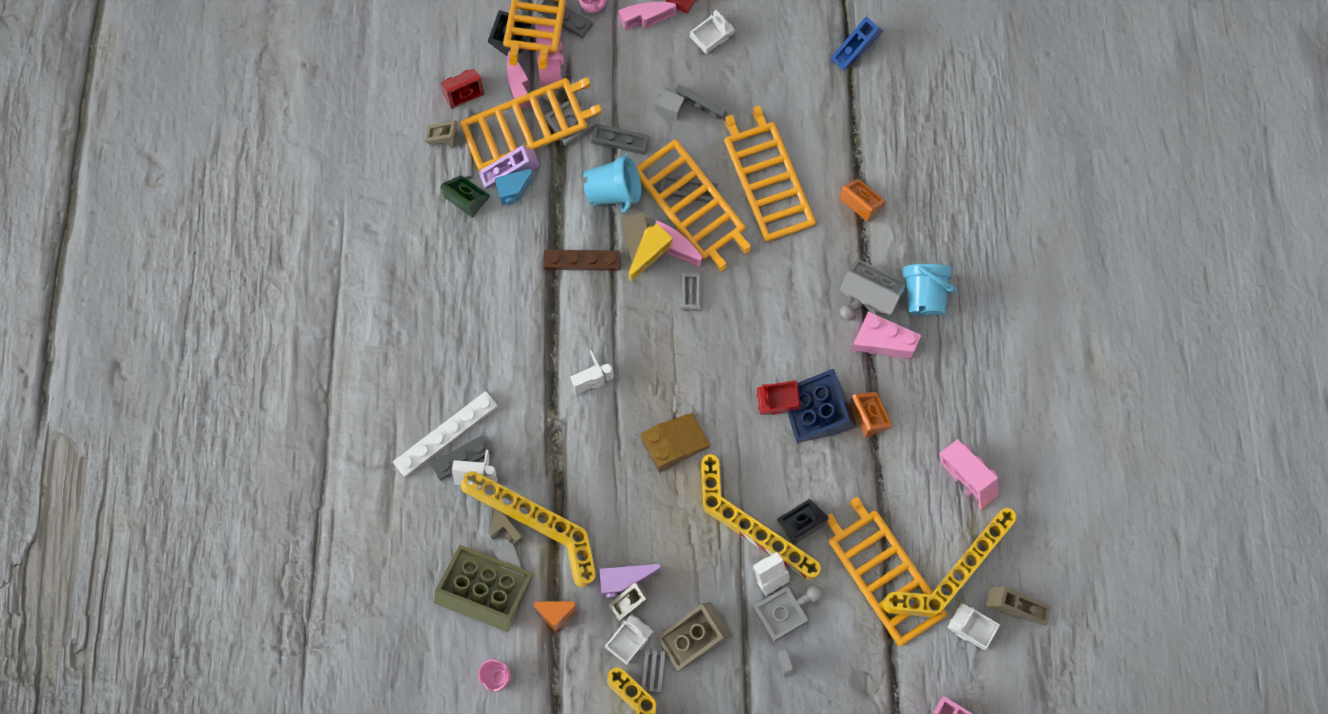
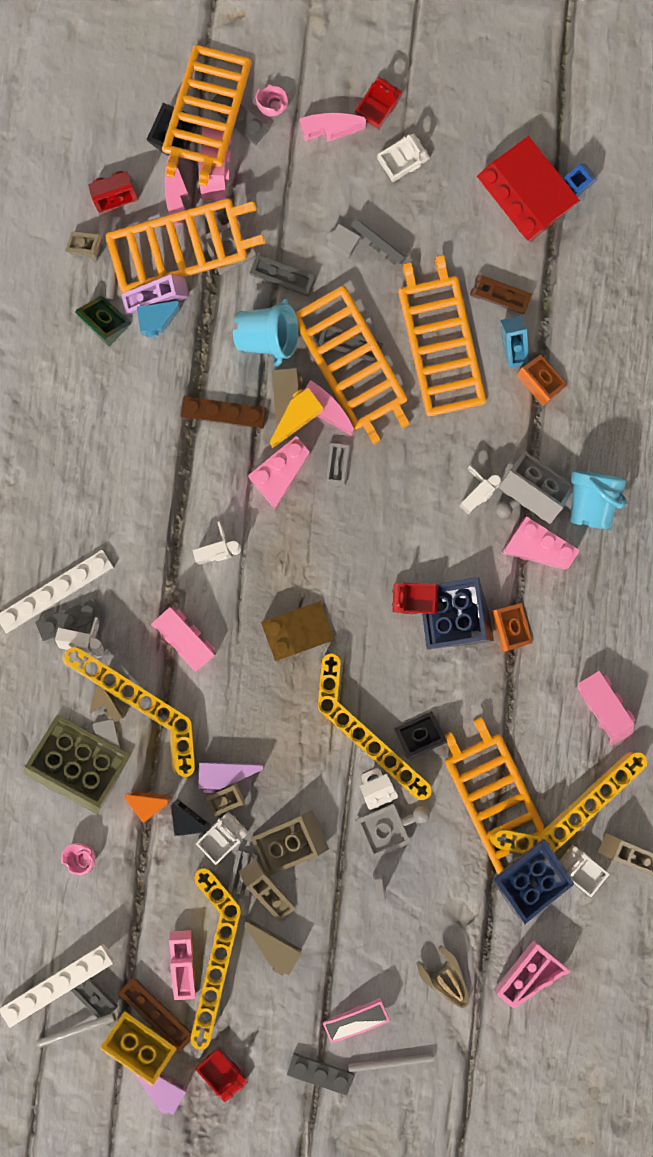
camera: 10 degrees right, 15 degrees up
(570, 458) = (184, 638): none -> bright pink wedge
(595, 624) = (186, 820): none -> black slope
(639, 302) = (279, 471): none -> bright pink wedge
(678, 682) = (266, 890): none -> dark tan slope
(815, 132) = (501, 294): none -> reddish brown plate
(824, 43) = (528, 188): none -> red slope
(824, 298) = (481, 493): none -> white piece
(833, 168) = (515, 341): none -> dark azure slope
(928, 637) = (533, 881): none -> dark blue slope

